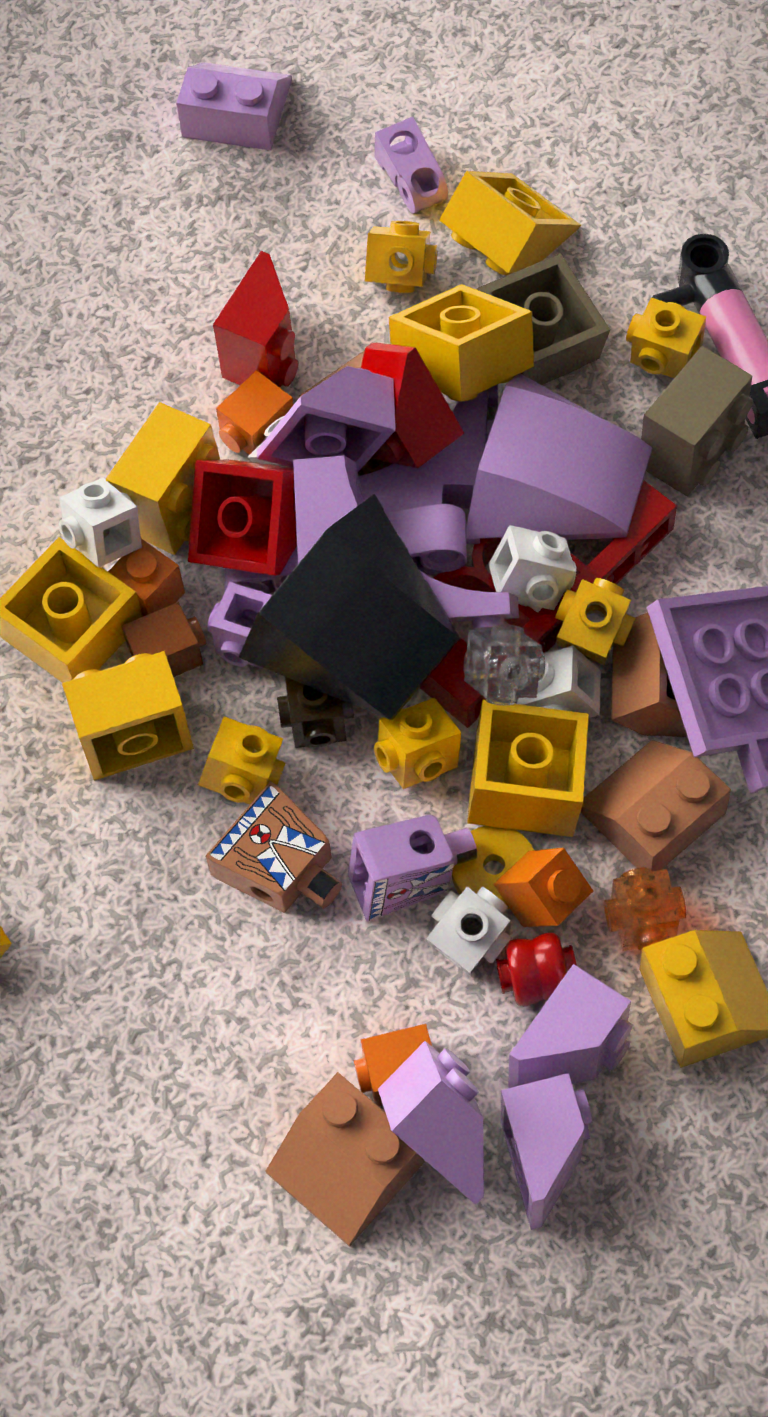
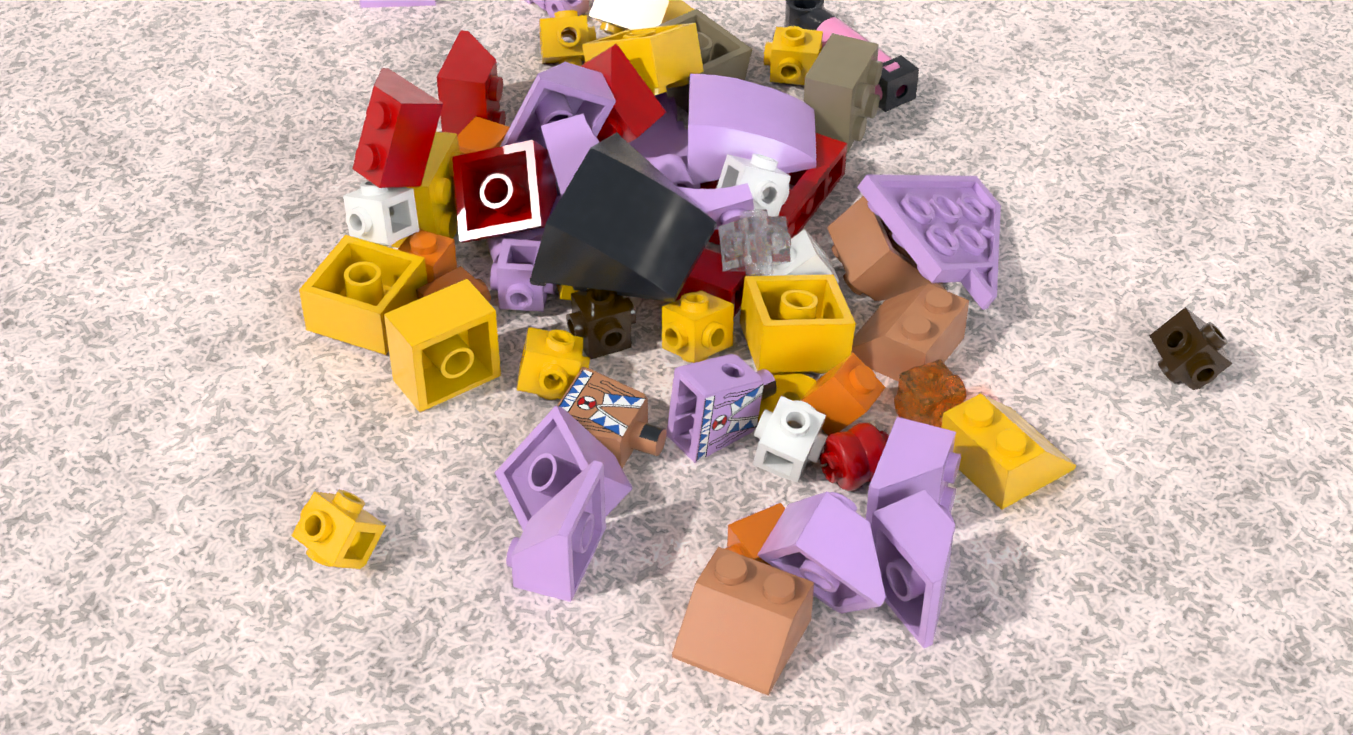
camera: 20 degrees left, 20 degrees down
(125, 439) = (397, 133): none -> red slope
(185, 1008) = (561, 538): none -> lavender slope
(211, 920) = (551, 460): none -> lavender slope
(590, 637) = (816, 210): yellow brick -> none

